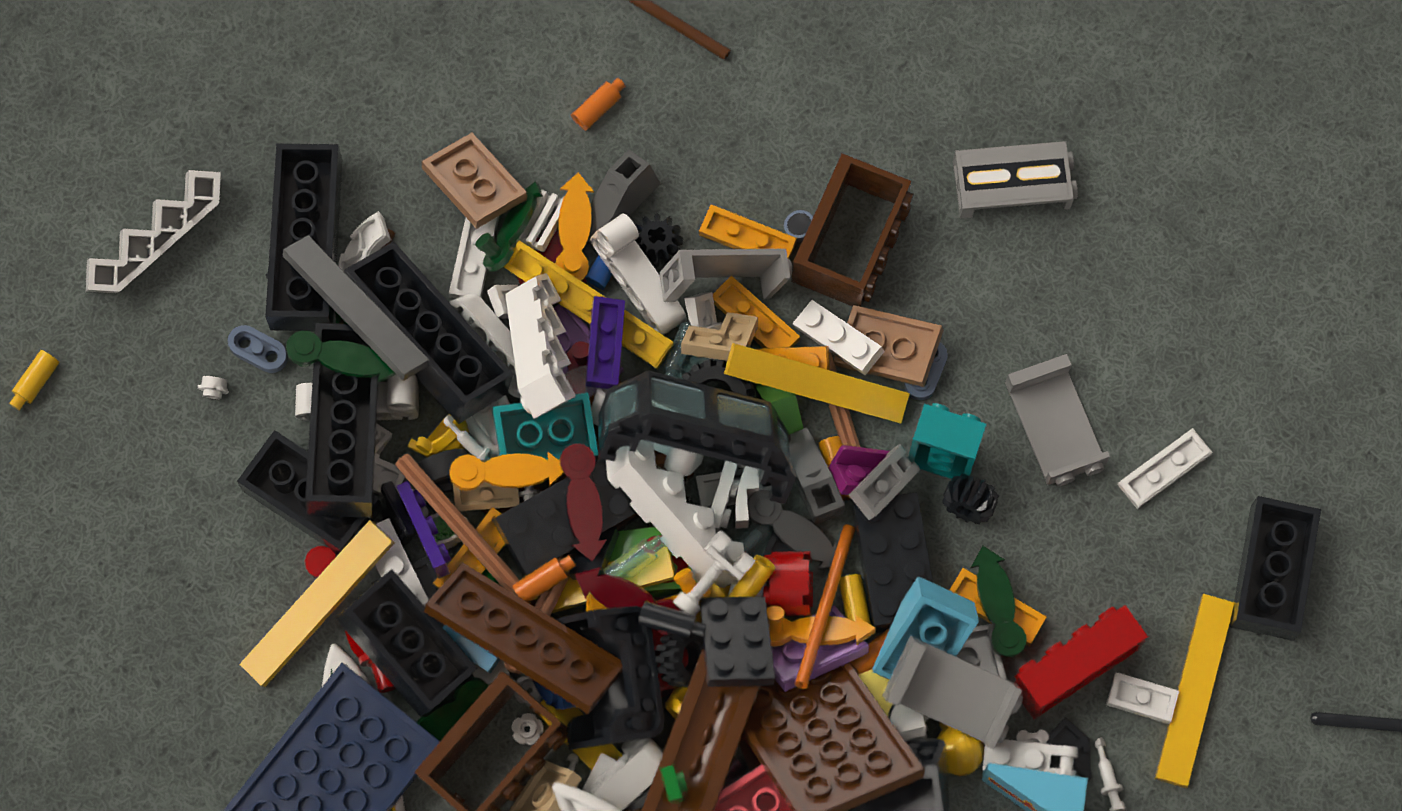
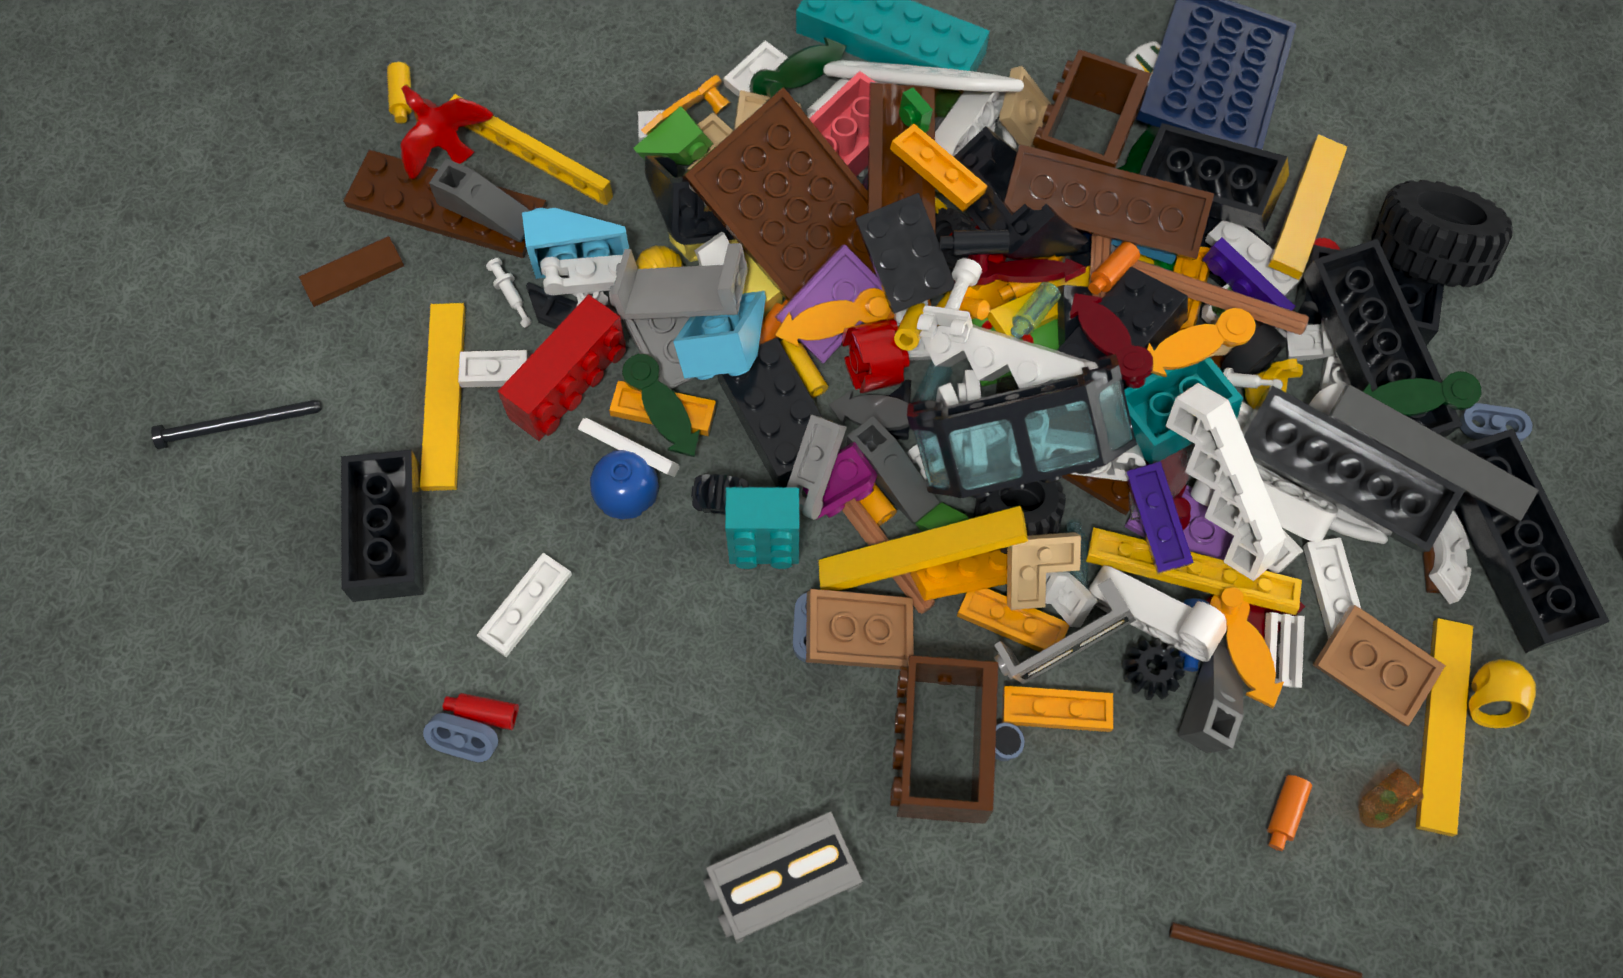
camera: 160 degrees right, 5 degrees down
(186, 531) = (1442, 233): none -> black tyre
(213, 387) = (1515, 374): white plate -> none
(384, 130) = (1502, 682): none -> yellow helmet
(439, 126) = (1445, 729): none -> yellow tile
(500, 253) = (1311, 635): dark green brick -> none
(517, 86) = (1389, 800): none -> clear orange rock
(674, 715) = (938, 167): none -> light orange plate
(824, 606) = (831, 330): orange piece -> none
(840, 337) = (916, 621): white plate -> none
(1038, 576) = (623, 443): none -> white tile
(1050, 547) = (623, 484): none -> blue cylinder
(1055, 421) = (652, 613): light grey panel -> none
(1221, 387) = (483, 710): none -> red cylinder
(1236, 364) = (465, 739): none -> sand blue plate

